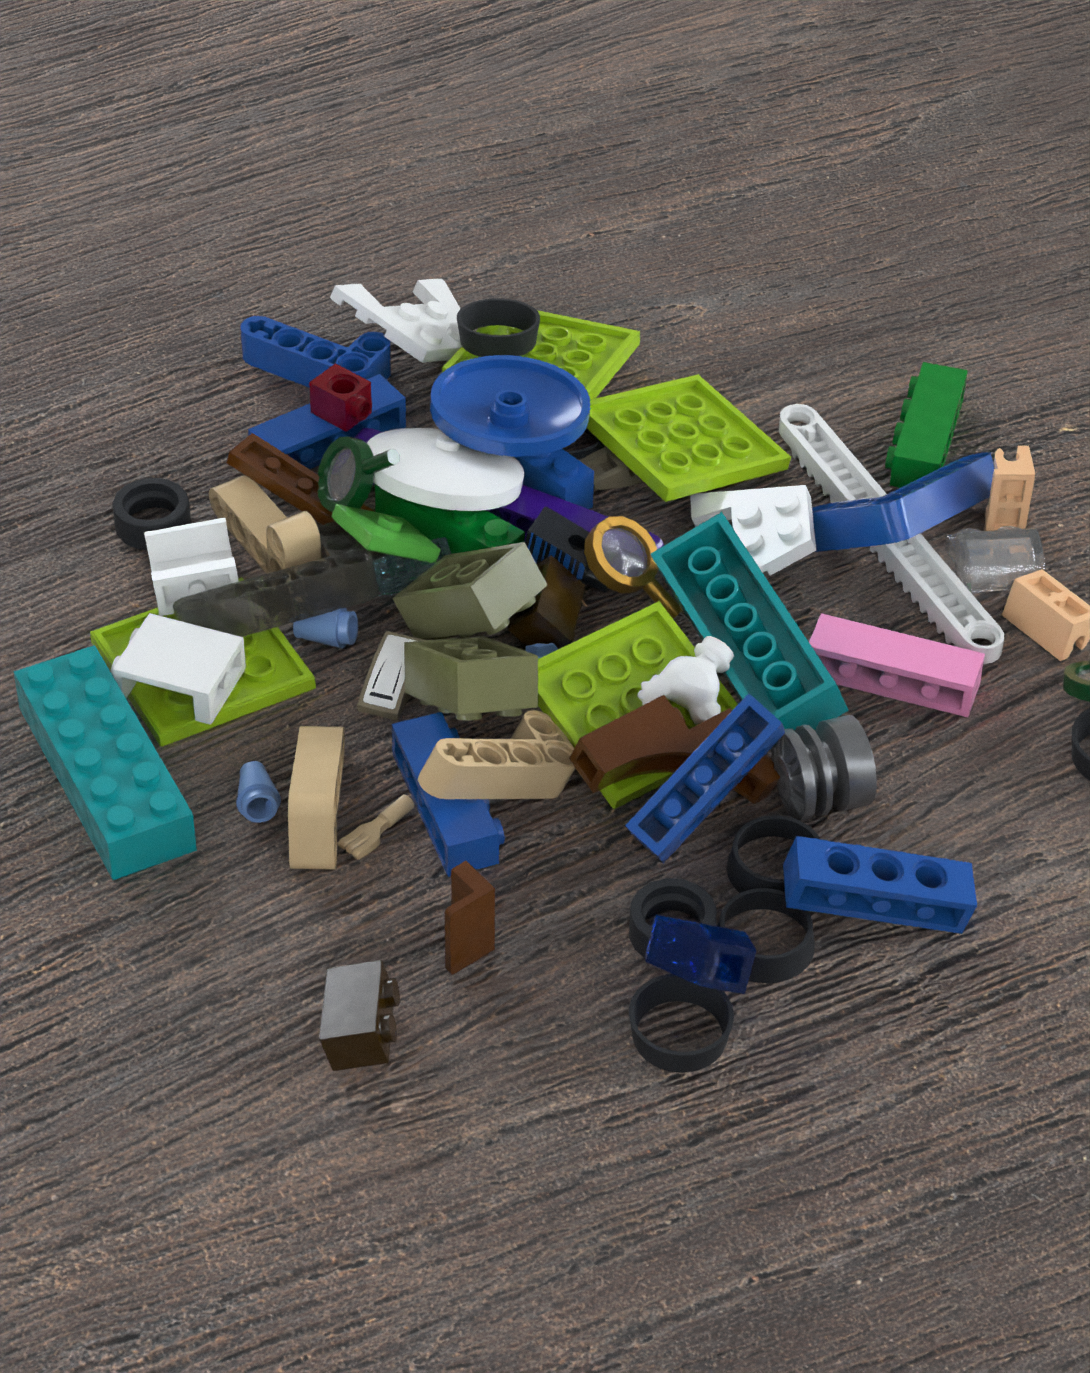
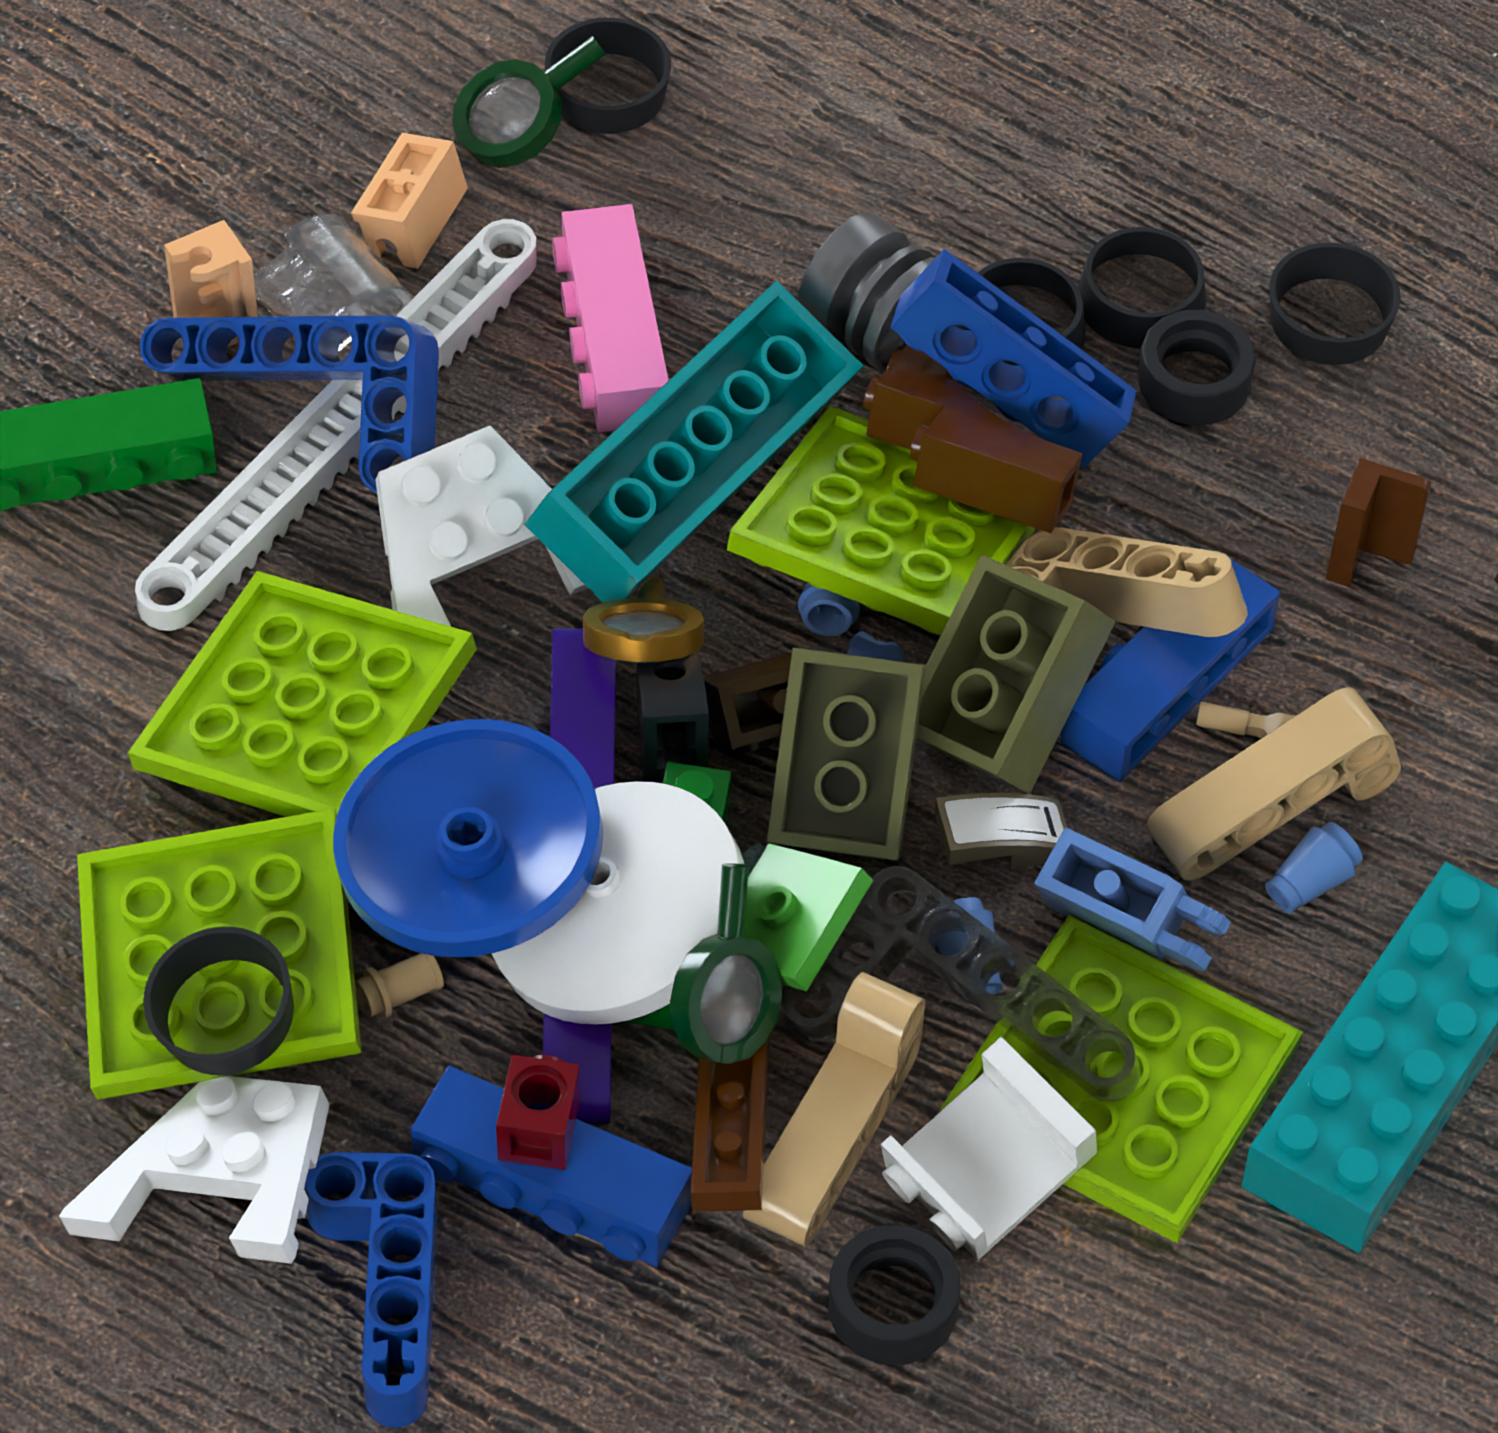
camera: 120 degrees left, 10 degrees up
(184, 661) = (1202, 1040): white panel -> none
(294, 684) = (1125, 899): none -> medium blue hinge
(692, 680) = (845, 446): white animal -> none
(702, 953) = (1258, 277): clear blue slope -> none
(879, 885) = (1023, 185): blue brick -> none

